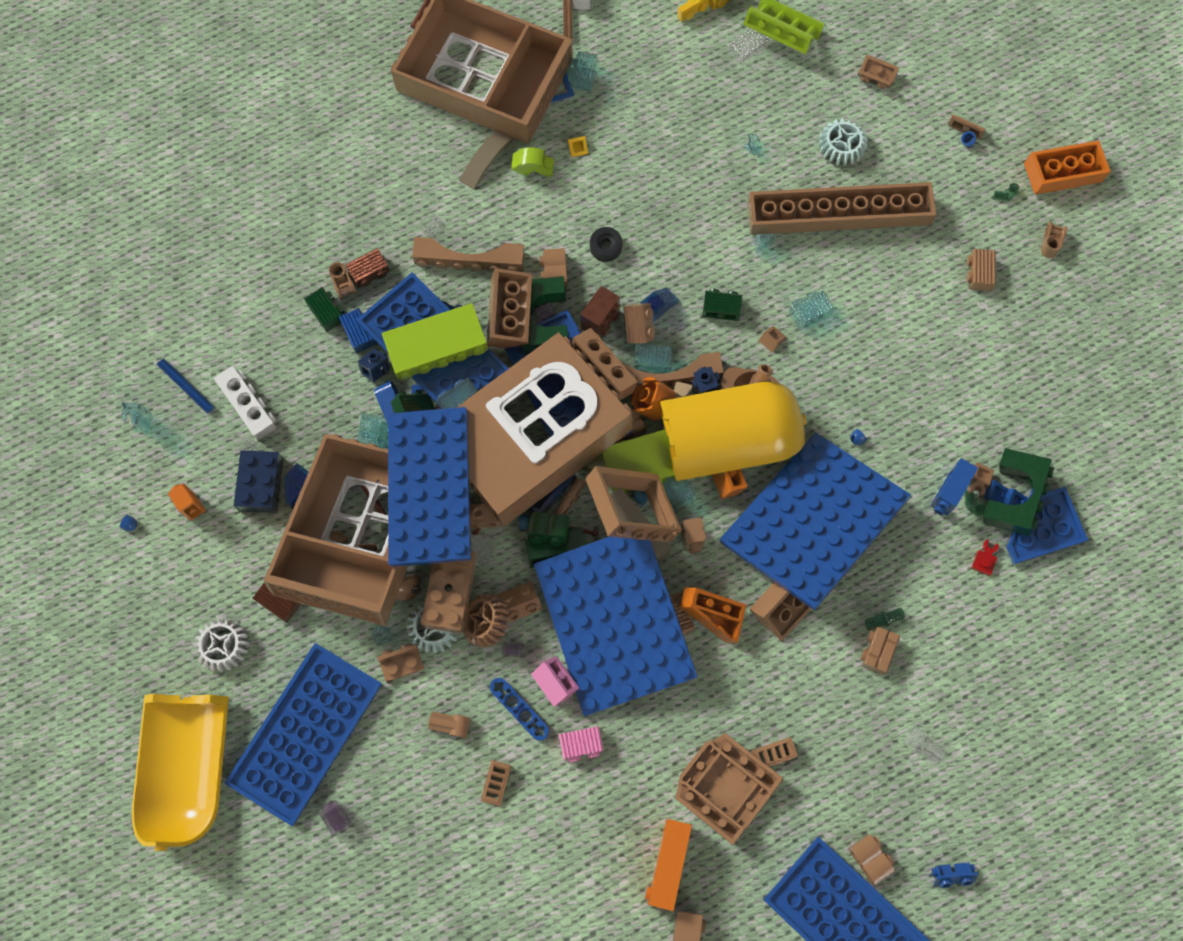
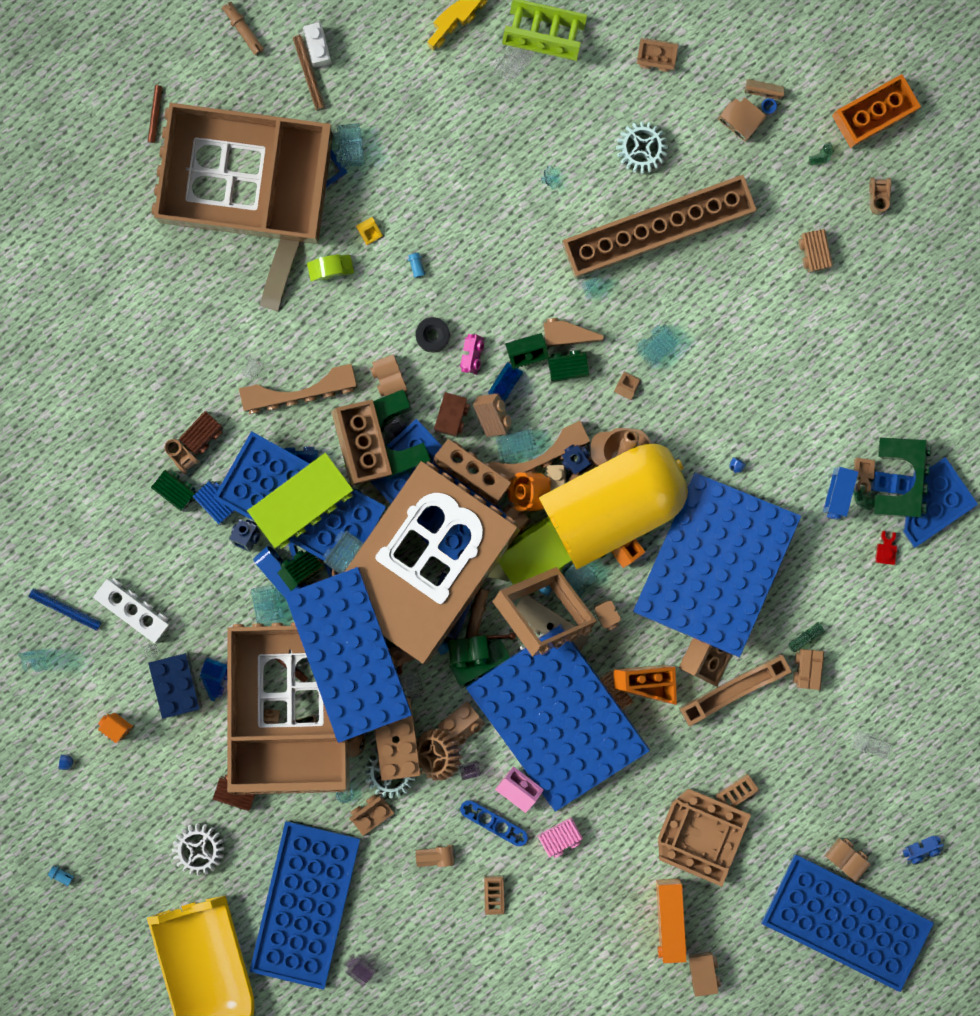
camera: 20 degrees left, 15 degrees up
(80, 630) = (60, 875): none -> dark azure pin
(610, 183) = (416, 264): none -> dark azure pin
(640, 264) = (474, 345): none -> dark pink hinge
(688, 279) = (527, 350): none -> dark green brick
(729, 276) = (565, 333): none -> medium nougat slope
(798, 648) = (735, 688): none -> medium nougat arch
(943, 140) = (742, 117): none -> medium nougat piece

